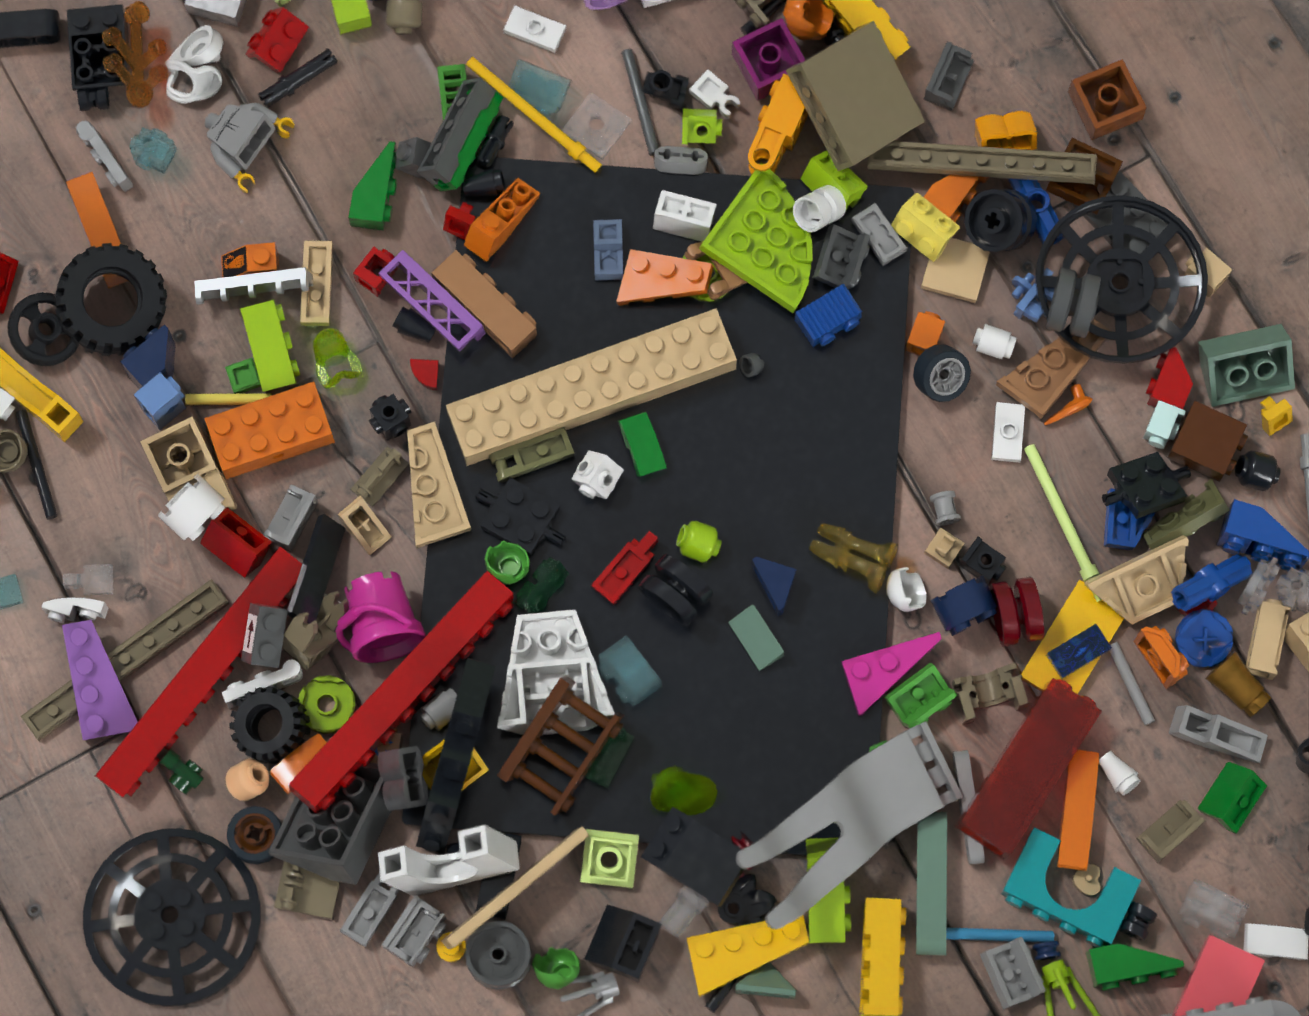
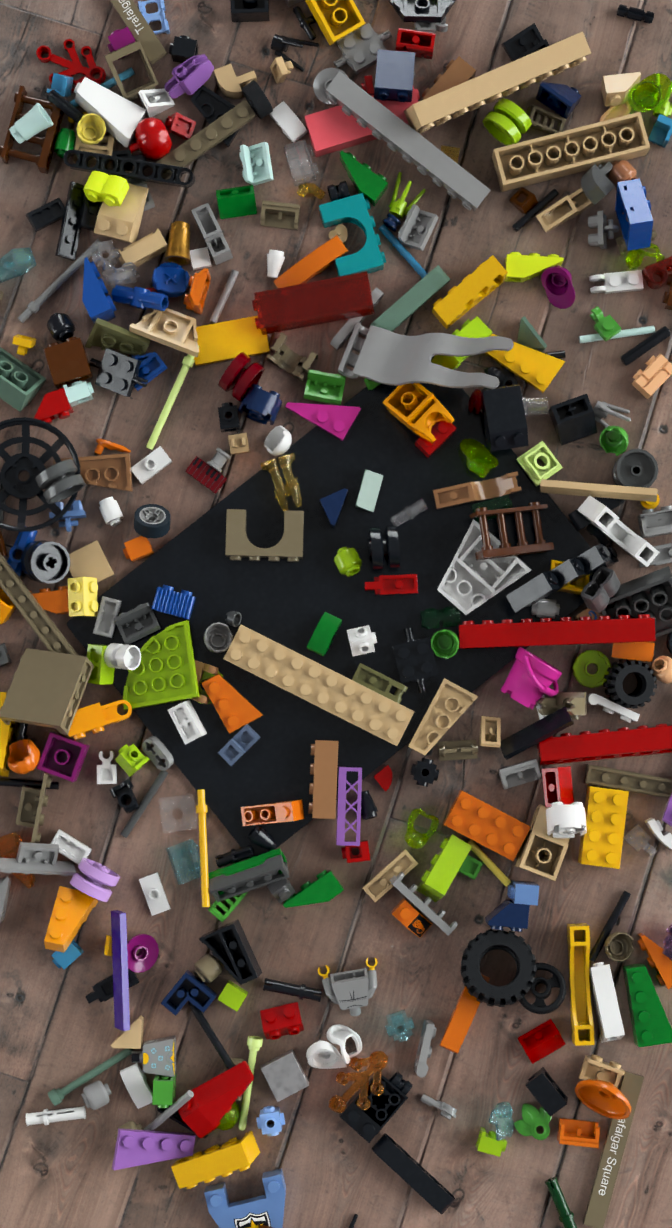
camera: 135 degrees left, 10 degrees up
(20, 121) = (446, 1110): none -> light grey plate
(145, 552) = (605, 827): none -> yellow brick
(264, 635) = (592, 725): dark grey brick -> none
(395, 52) = (234, 951): none -> black wedge
(459, 220) = (294, 832): red tile -> none
(629, 672) = (443, 535): clear light blue brick -> none
(645, 754) = (476, 491): none -> medium nougat piece
(690, 658) = (409, 513): none -> clear axle
(745, 327) = (218, 637): none -> light grey hair
(749, 765) = (442, 432): none -> red brick
(795, 765) = (417, 409): none -> light orange brick
(826, 442) = (288, 547): none -> dark tan arch
(941, 478) = (206, 475): none -> dark red tile
(1078, 651) = (232, 332): clear blue tile -> none
(1172, 895) = (306, 188): none -> clear yellow arm
(1200, 695) = (200, 258): none -> white tile
(1257, 857) = (256, 163): none -> light aqua bracket

